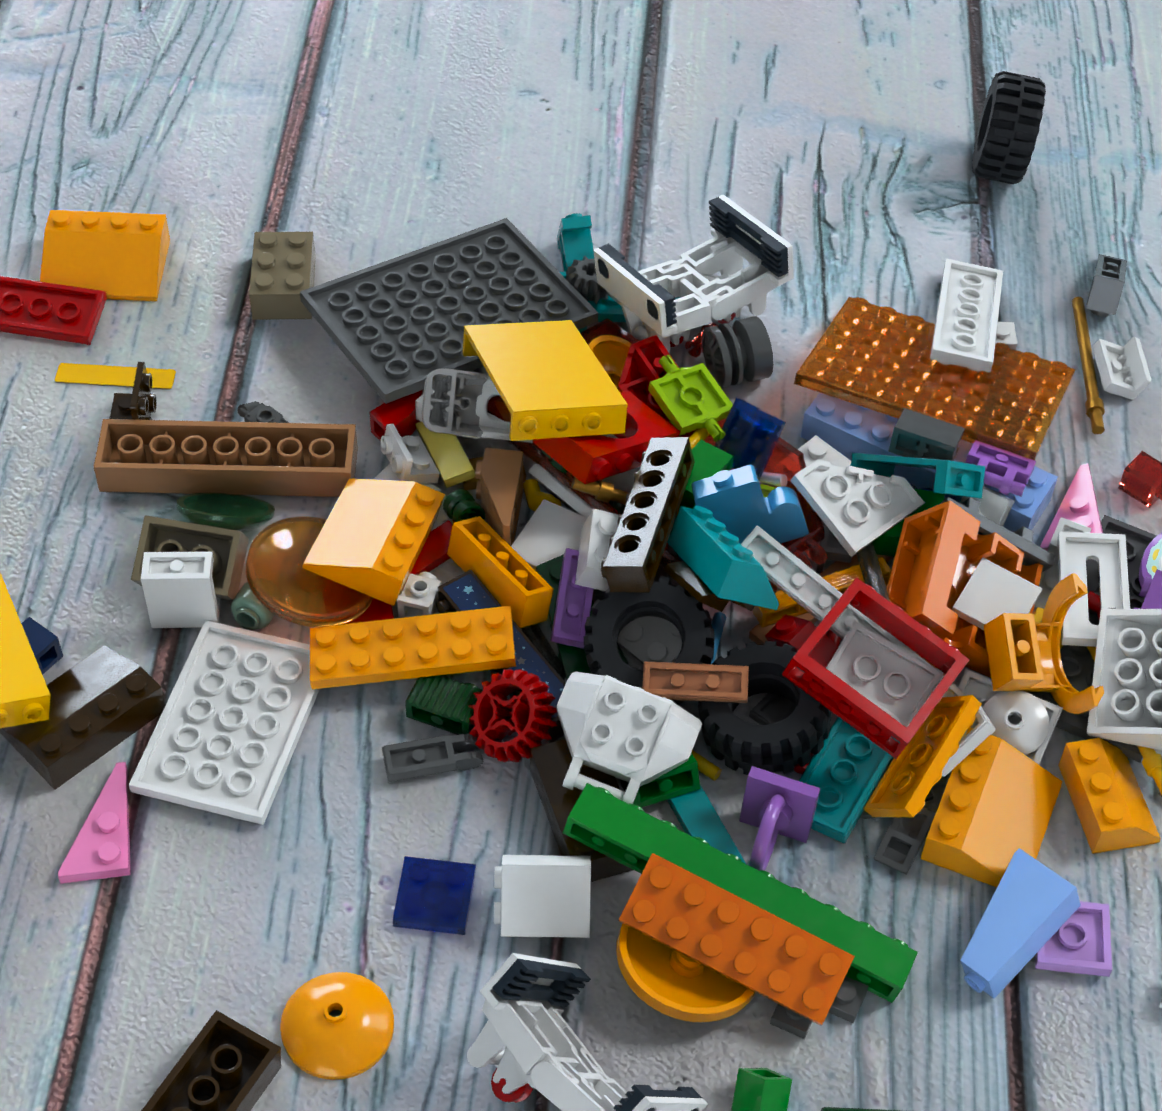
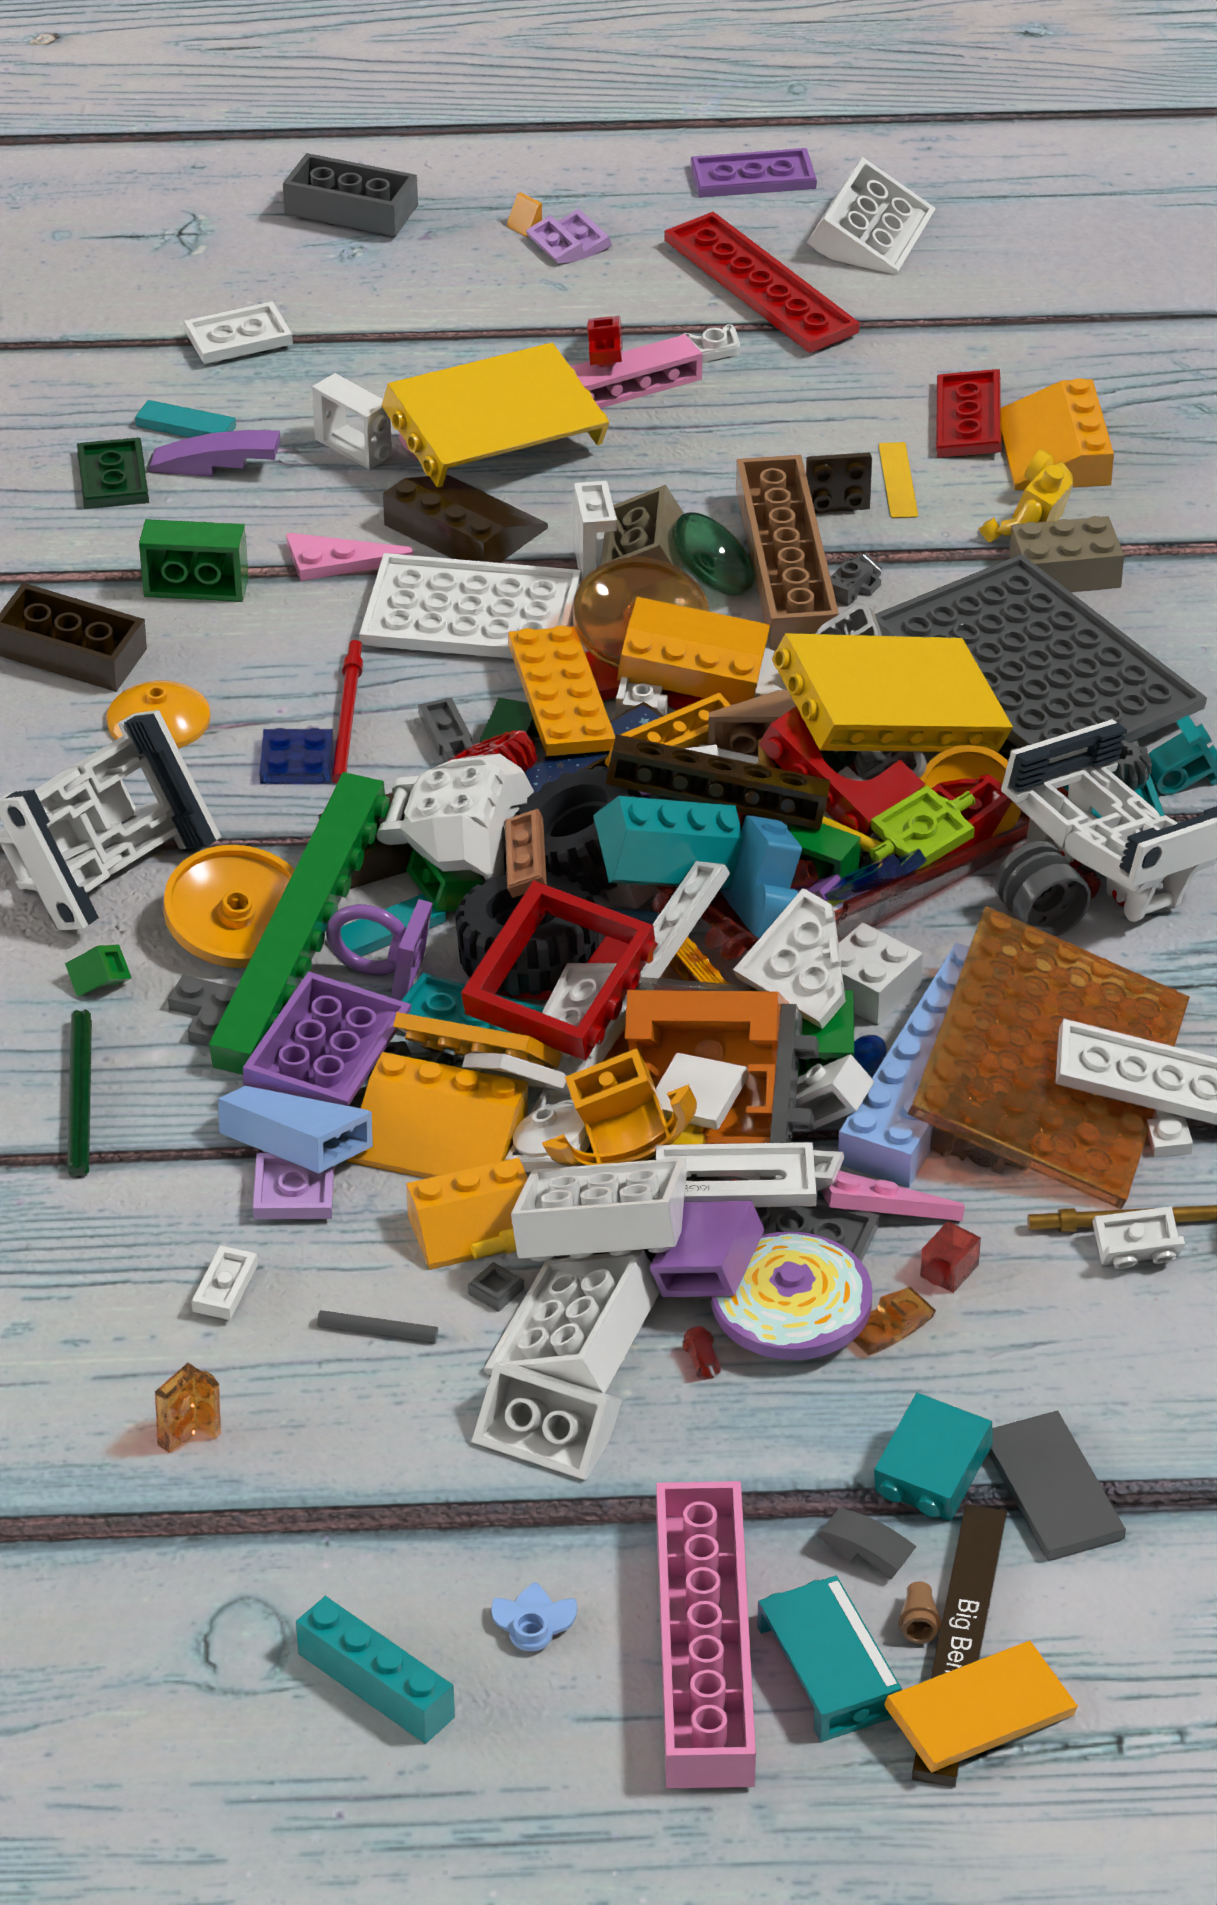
camera: 85 degrees right, 10 degrees down
(43, 644) = (530, 477): dark blue brick -> none
(105, 959) = (194, 560): none -> green brick
(209, 274) = (1042, 499): none -> yellow torso
(303, 833) = (352, 670): none -> red bar
(543, 896) = (285, 803): white brick -> none
(736, 939) = (239, 914): orange plate -> none
(908, 887) = (324, 1041): none -> medium lavender slope
(925, 437) = (920, 1021): dark grey hinge -> none
(950, 476) = (850, 1005): teal panel -> none
(1003, 468) = (896, 1084): medium lavender plate -> none

